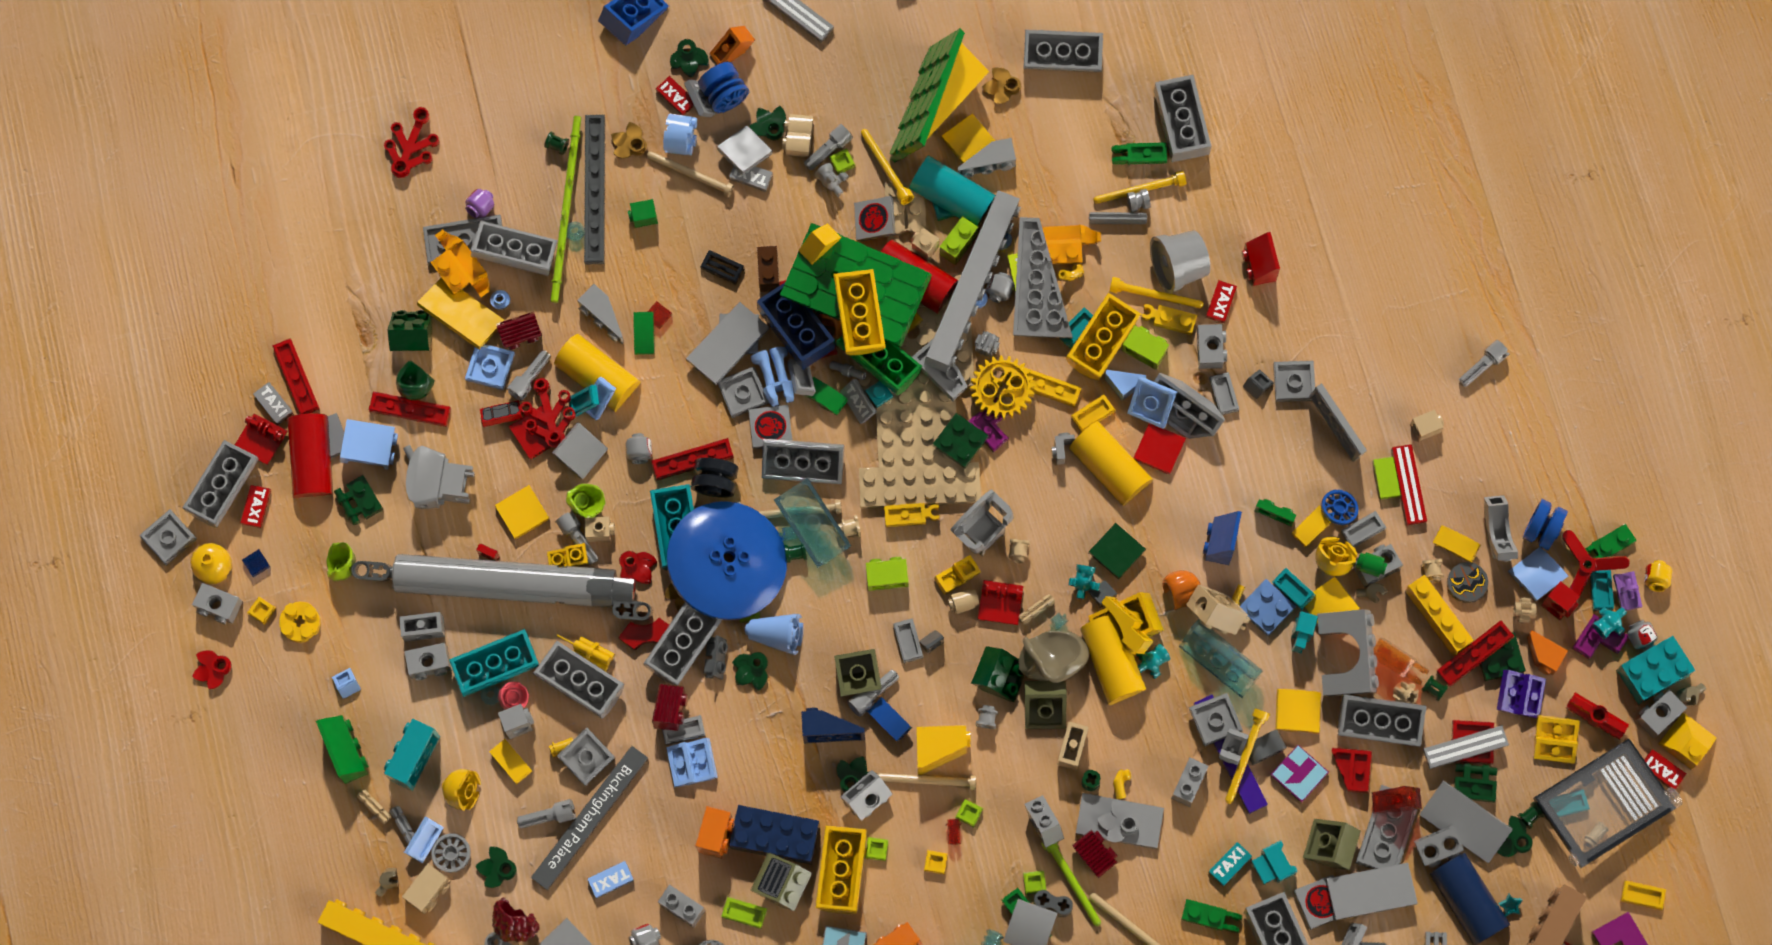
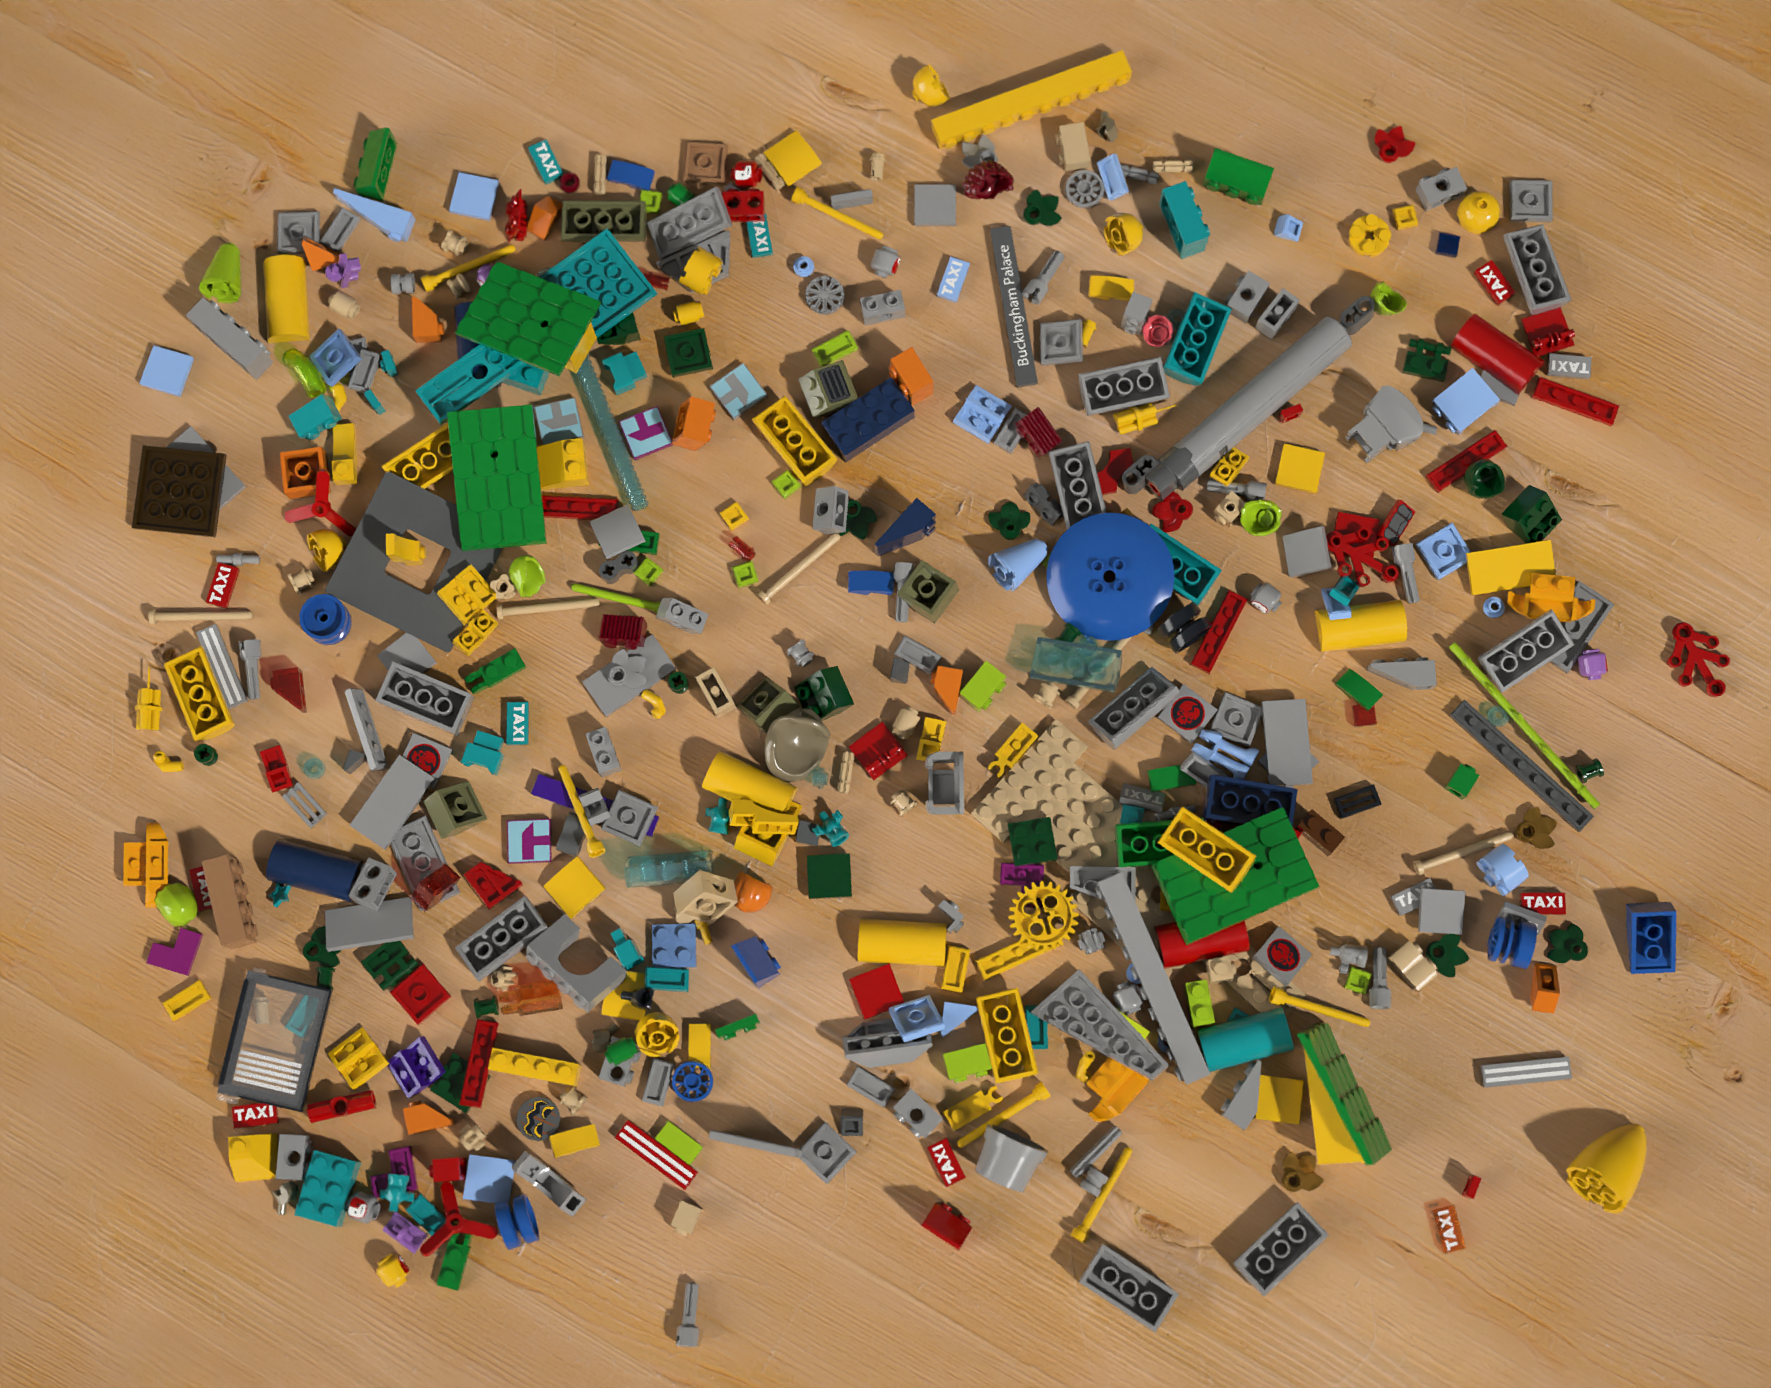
camera: 135 degrees right, 5 degrees up
(519, 330) = (1452, 595): dark red brick -> none
(819, 243) = (1295, 875): yellow slope -> none
(910, 597) = (947, 686): none -> orange slope
(940, 745) = (813, 595): yellow slope -> none
(1140, 153) = (1131, 1226): green hinge -> none
(1323, 590) = (639, 998): none -> black piece
(1465, 747) = (420, 982): light grey tile -> none

